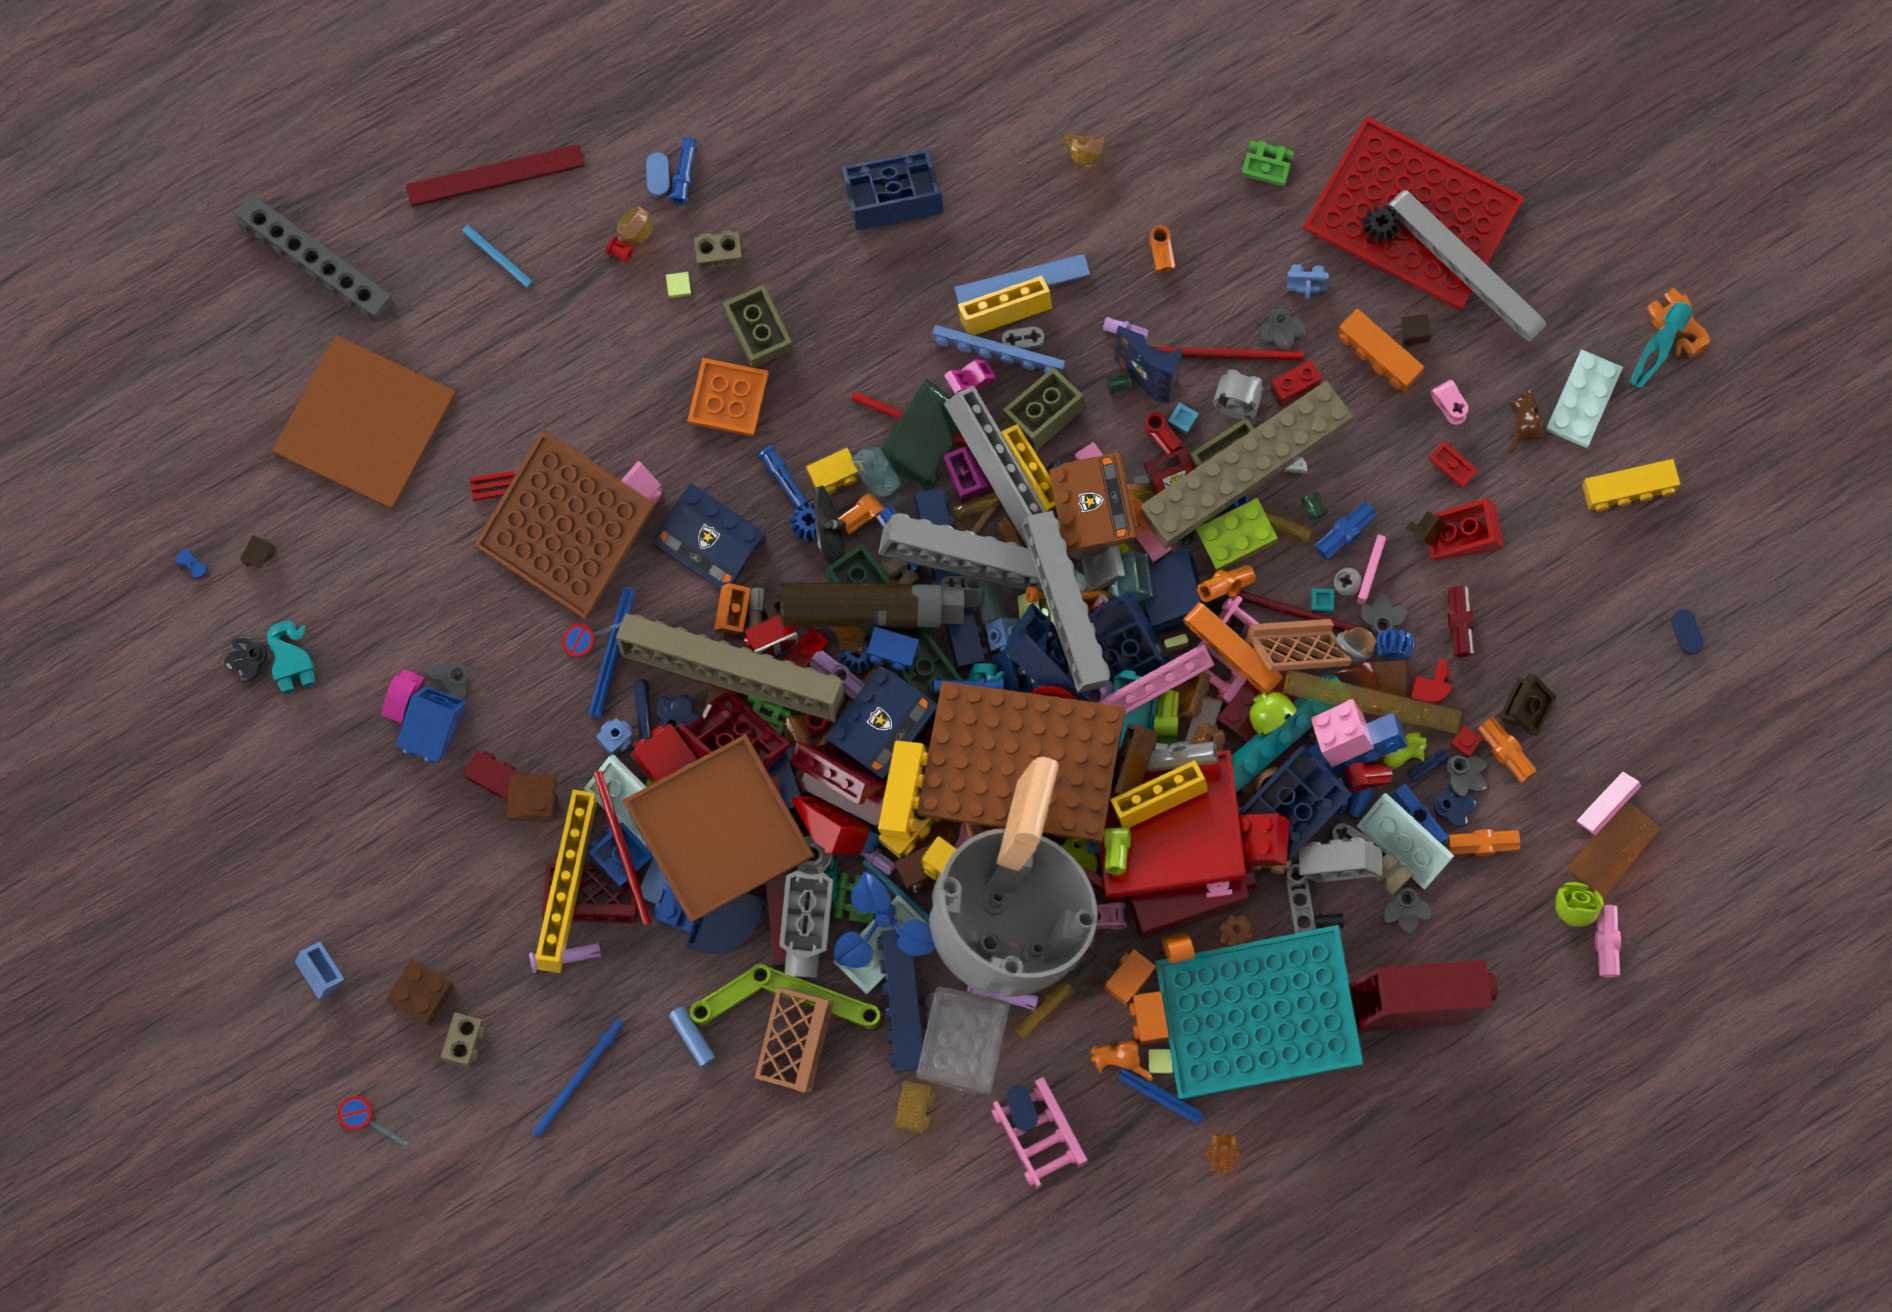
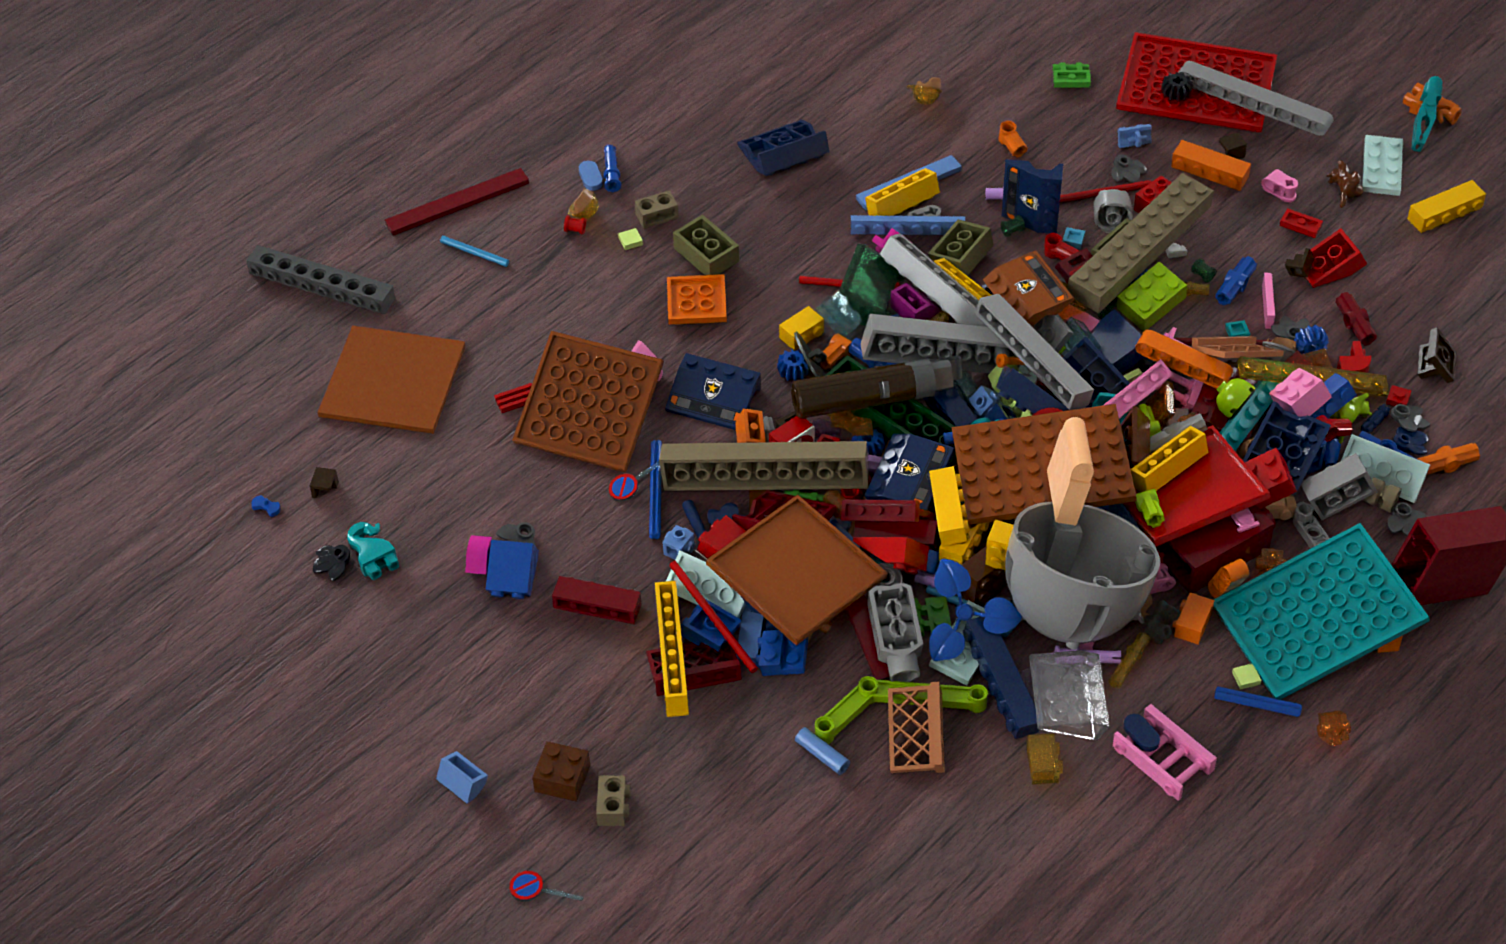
camera: 15 degrees left, 25 degrees down
(531, 797) = (619, 598): reddish brown slope -> none
(573, 954) = (668, 723): lavender pin -> none
(606, 1040) = (743, 774): blue bar -> none
(727, 926) = (823, 653): dark blue brick -> none
(779, 466) = (754, 336): blue pin -> none
(892, 649) = (899, 417): blue brick -> none
(1123, 1055) = (1212, 676): orange animal -> none
(1149, 1017) = (1224, 644): orange brick -> none
(1226, 583) = (1157, 324): orange piece -> none
(1347, 573) = (1259, 313): light grey piece -> none
(1507, 750) = (1435, 393): orange piece -> none

